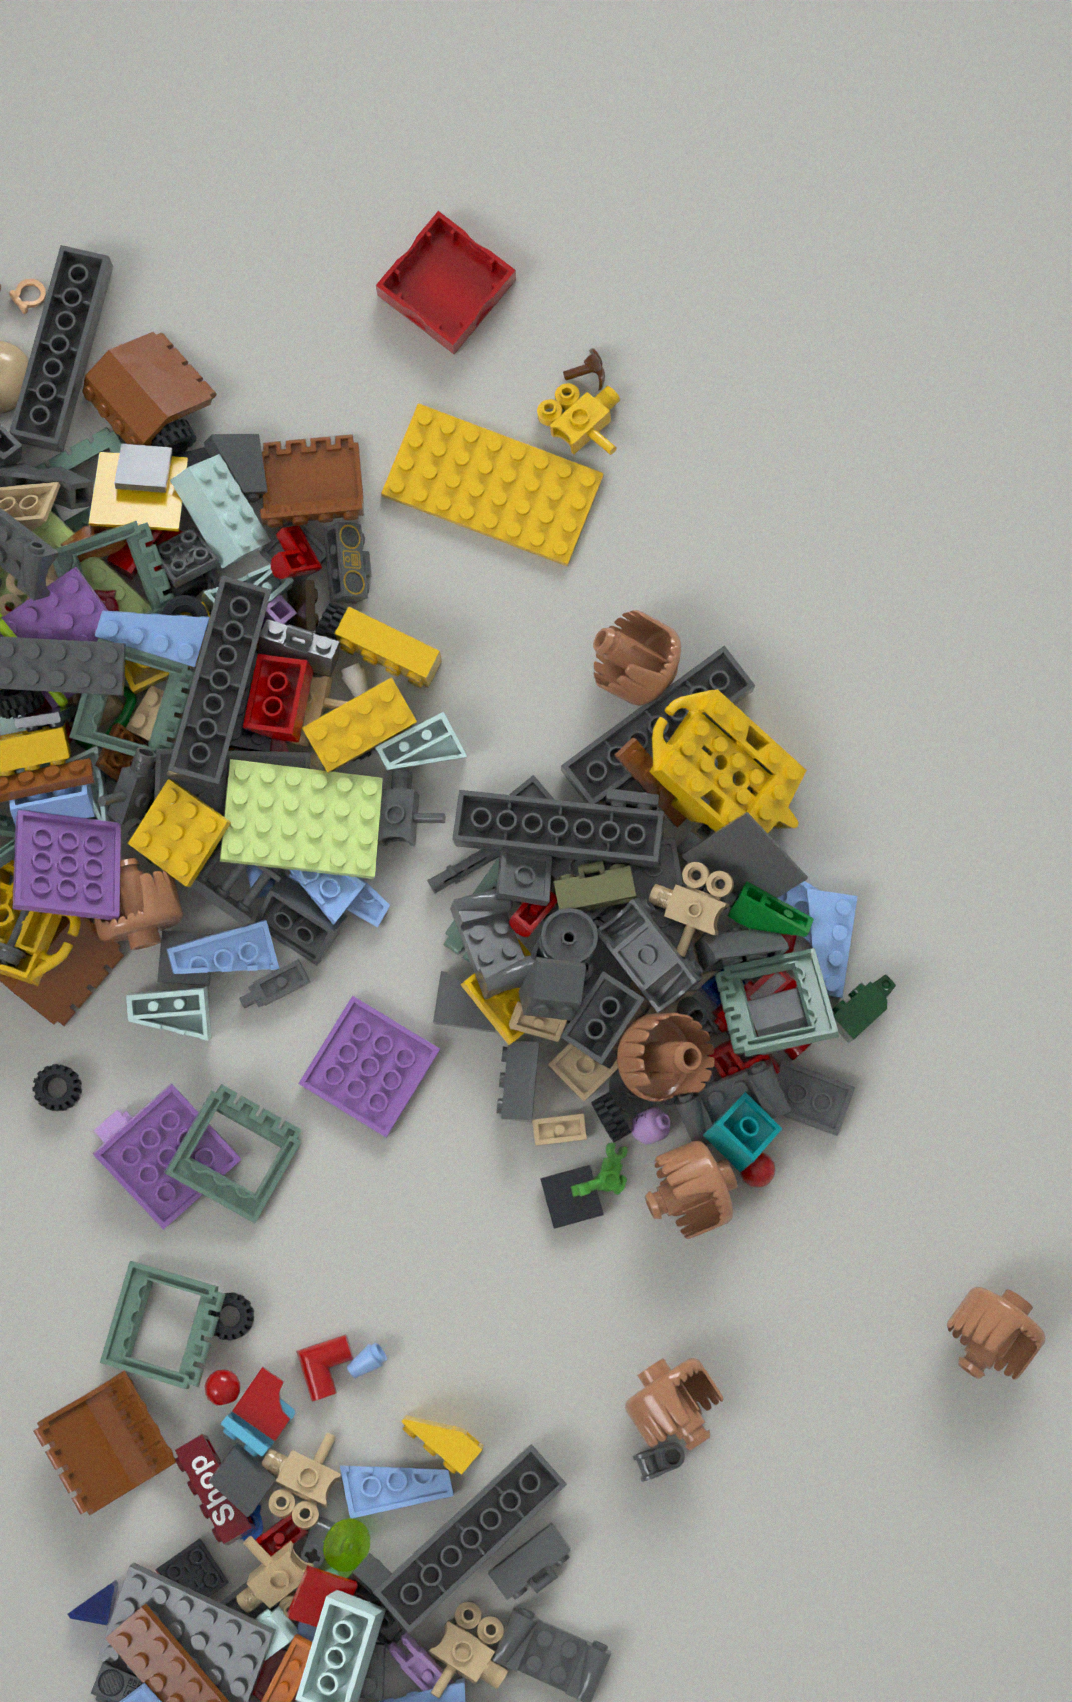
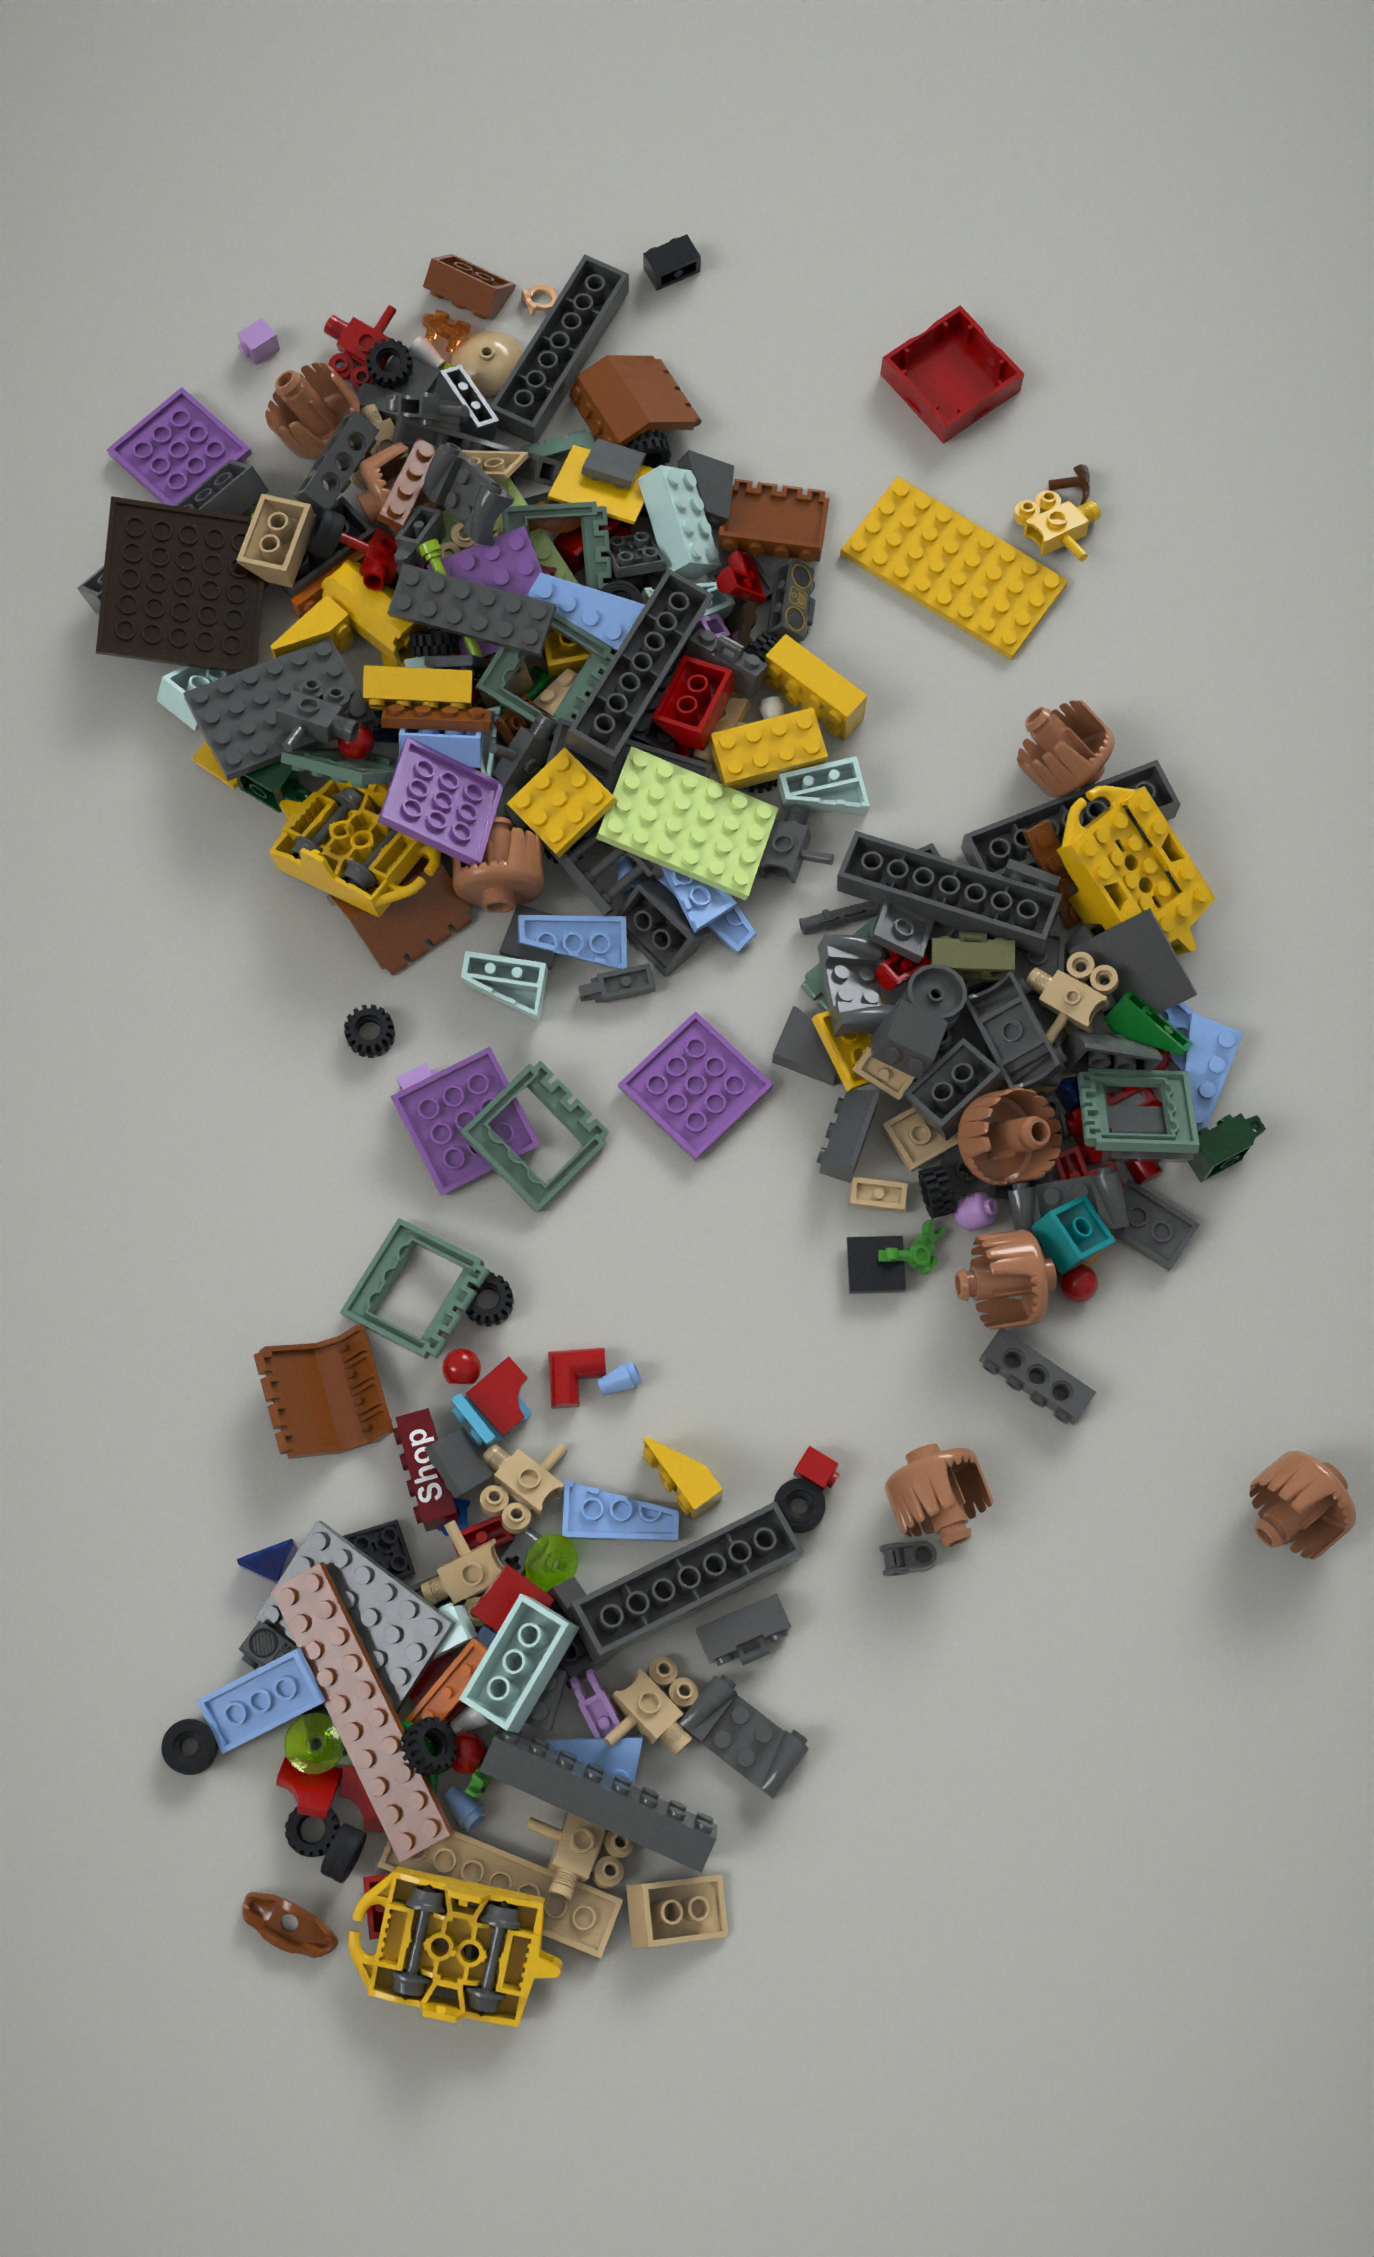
camera: 10 degrees right, 10 degrees down
(147, 225) = (671, 262): none -> black brick
(562, 1401) = (817, 1468): none -> red brick
(568, 1436) = (811, 1494): none -> black tyre
(778, 1275) = (1030, 1361): none -> dark grey brick

